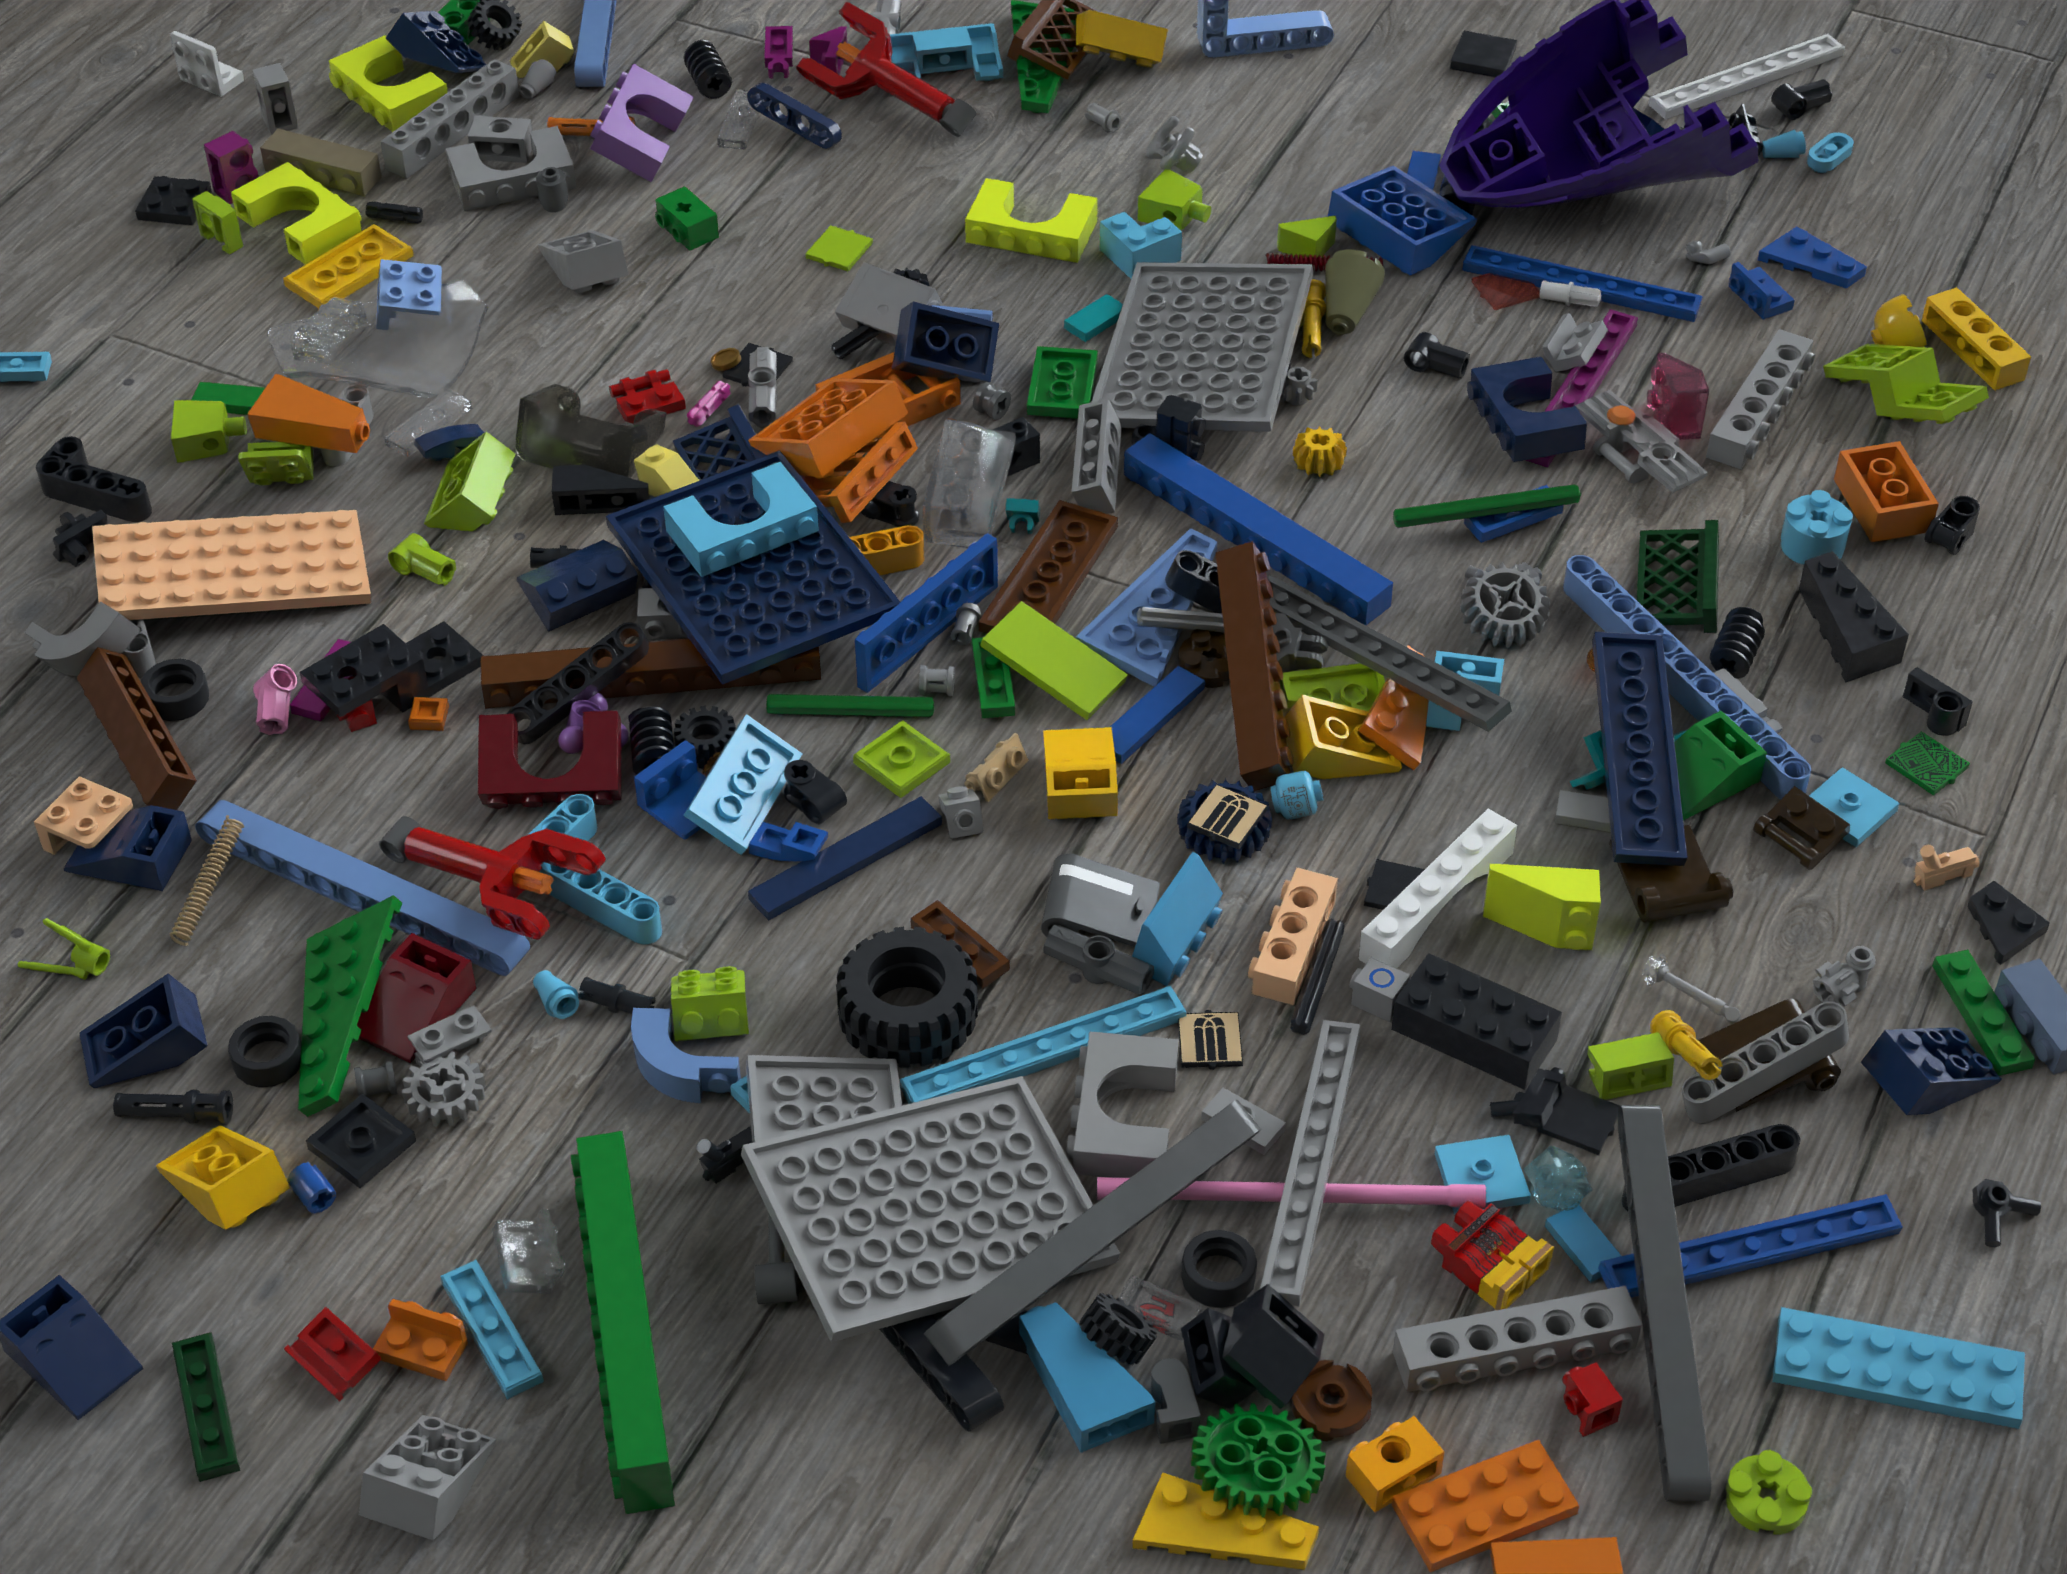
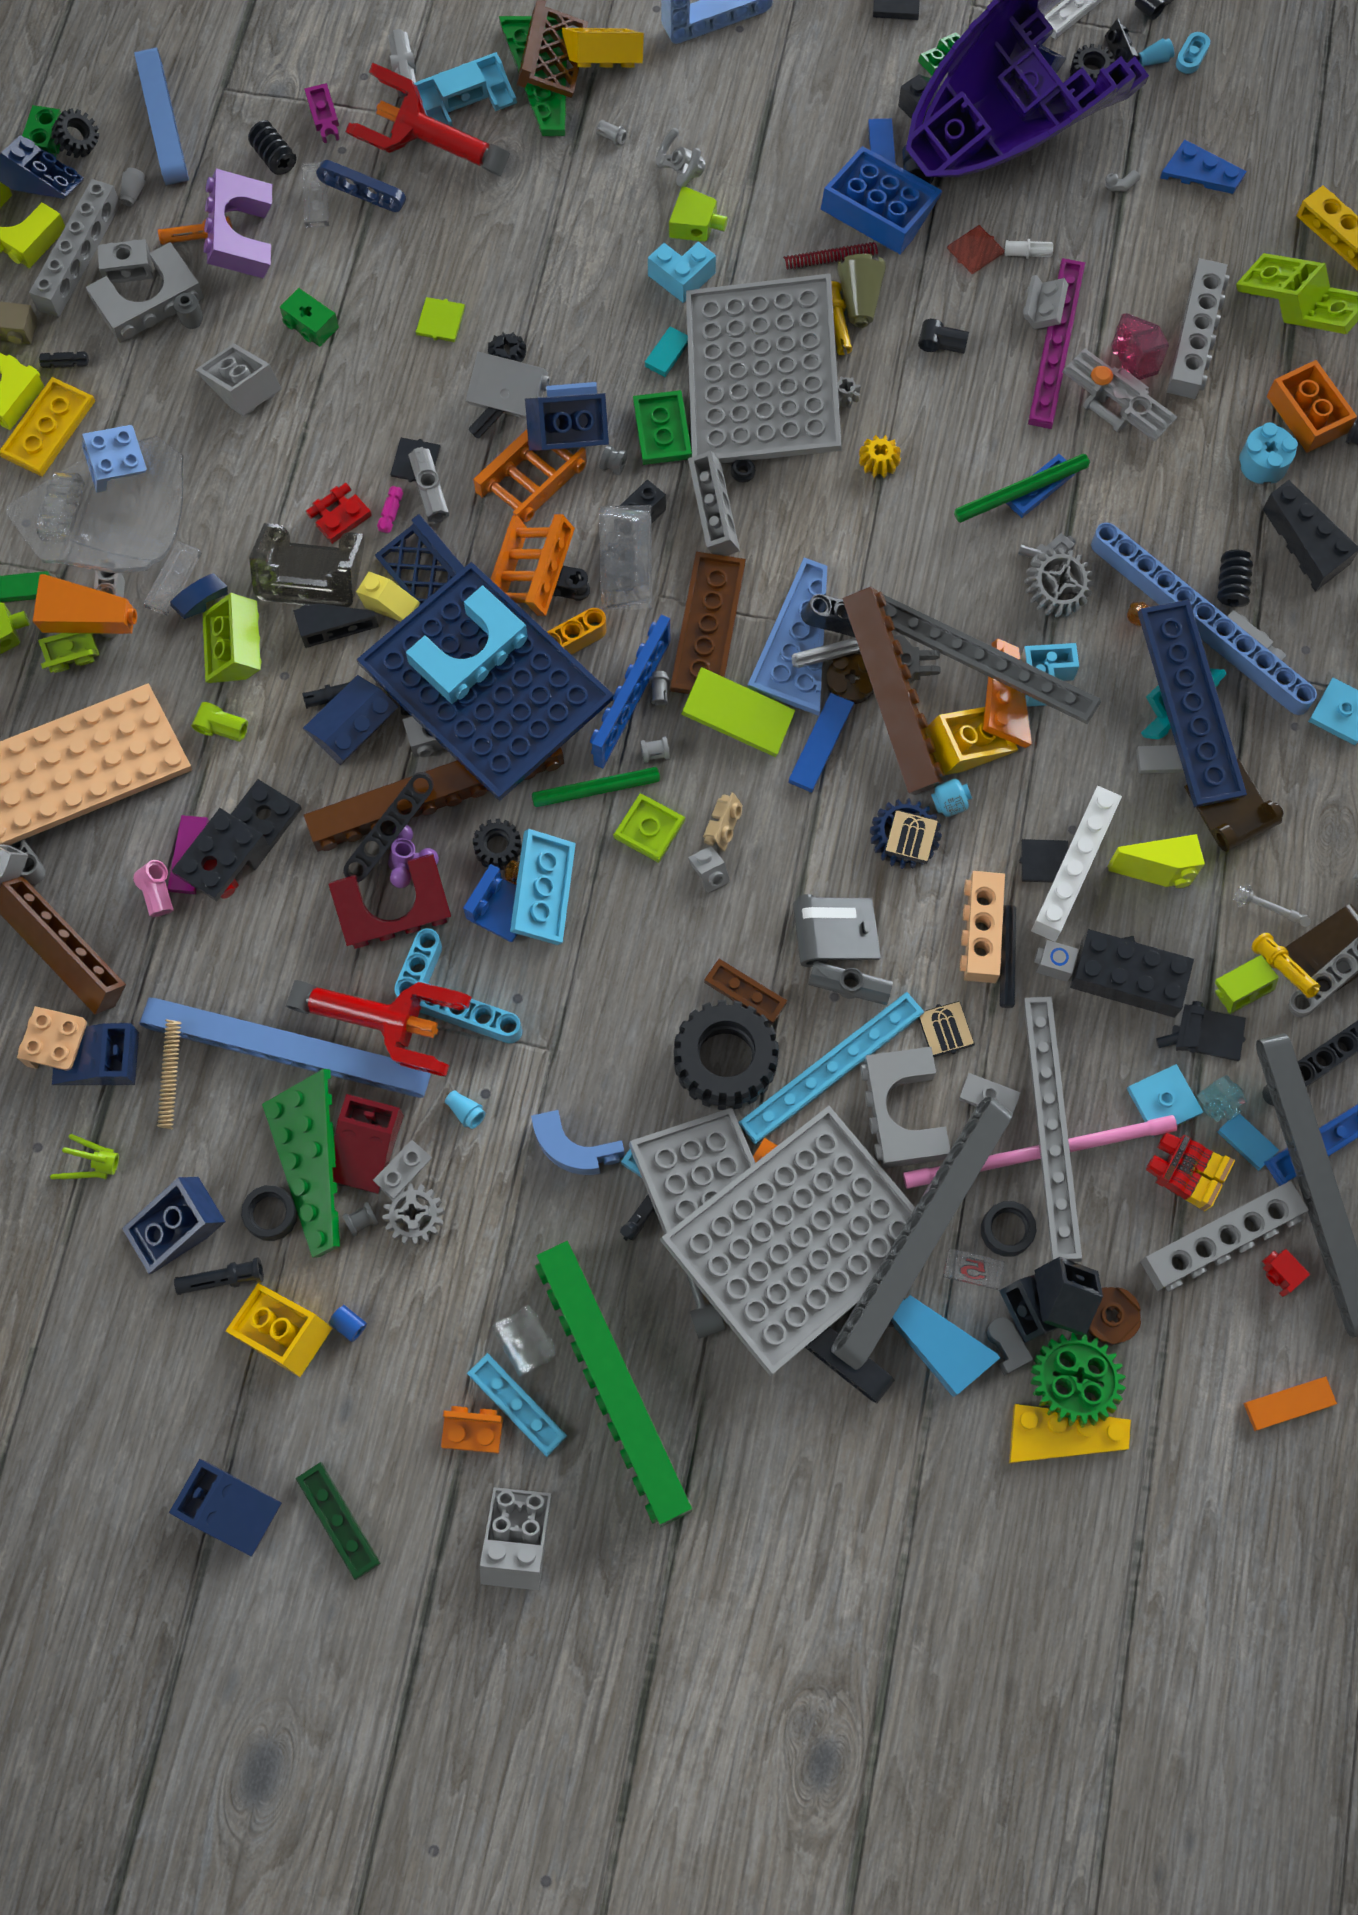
camera: 15 degrees left, 25 degrees up
(171, 672) = (64, 877): black tyre -> none
(333, 1353) = (414, 1458): red plate -> none
(361, 1140) = (368, 1273): black plate -> none
(428, 713) = (276, 869): orange tile -> none
(544, 44) = (126, 151): light yellow slope -> none
(613, 997) = (511, 1101): black pin -> none
(649, 736) = (458, 861): black piece -> none
(709, 1004) = (580, 1088): lime bracket -> none
(725, 359) = (388, 459): pearl gold piece -> none
(781, 844) = (591, 930): blue slope -> none
(812, 791) = (599, 881): black piece -> none
(824, 48) = (365, 103): magenta slope -> none
(833, 424) = (501, 524): orange slope -> none
(844, 858) = (636, 931): dark blue tile -> none
(993, 683) = (696, 740): green plate -> none
(1022, 510) = (671, 568): teal tile -> none
(1058, 238) = (614, 276): neon yellow arch -> none
(1080, 773) = (789, 813): yellow slope -> none
(1118, 1329) = (957, 1303): black tyre -> none
(1179, 921) = (900, 940): dark azure slope -> none
(1181, 426) = (772, 466): black brick -> none
(1243, 518) = (852, 545): blue brick -> none
(1307, 236) = (811, 233): lime slope -> none
(1344, 684) = (952, 690): lime wing -> none
(1379, 1480) = (1183, 1351): light orange brick -> none
(1484, 1505) = (1233, 1371): orange plate -> none
(1522, 432) = (1029, 407): dark blue arch -> none
(1613, 289) = (1060, 234): blue tile -> none
(1706, 568) = (1196, 510): dark green fence -> none
(1715, 763) = (1246, 697): green slope -> none
(1759, 291) = (1171, 214): blue bracket -> none
(1806, 819) = (1321, 734): dark brown plate -> none
(1897, 325) = (1286, 236): yellow cylinder -> none

